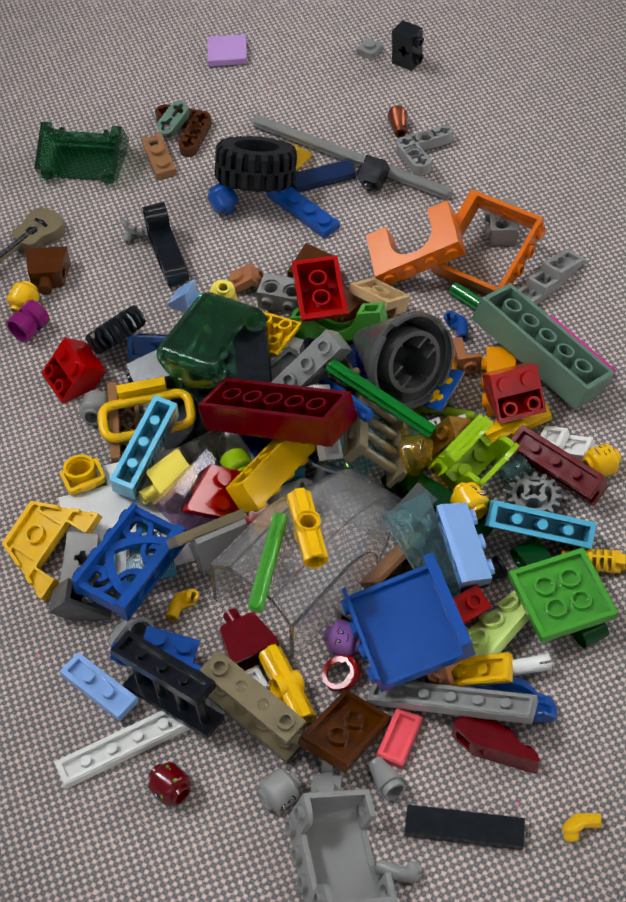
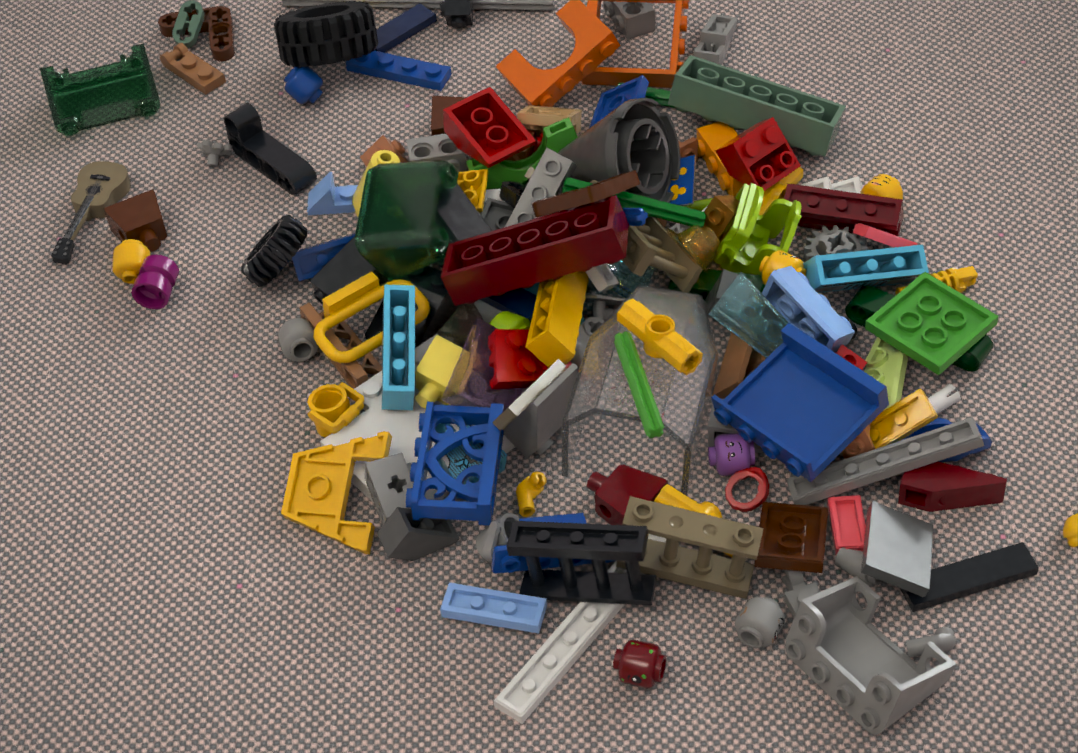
camera: 25 degrees left, 5 degrees down
(73, 370) = (244, 313): red slope -> none
(341, 382) = (586, 194): none -> reddish brown beam
(416, 779) = (897, 549): none -> tile
(444, 301) = (616, 96): none -> blue plate
(515, 468) = (804, 229): clear light blue bush -> none
(576, 502) = (881, 236): none -> coral tile

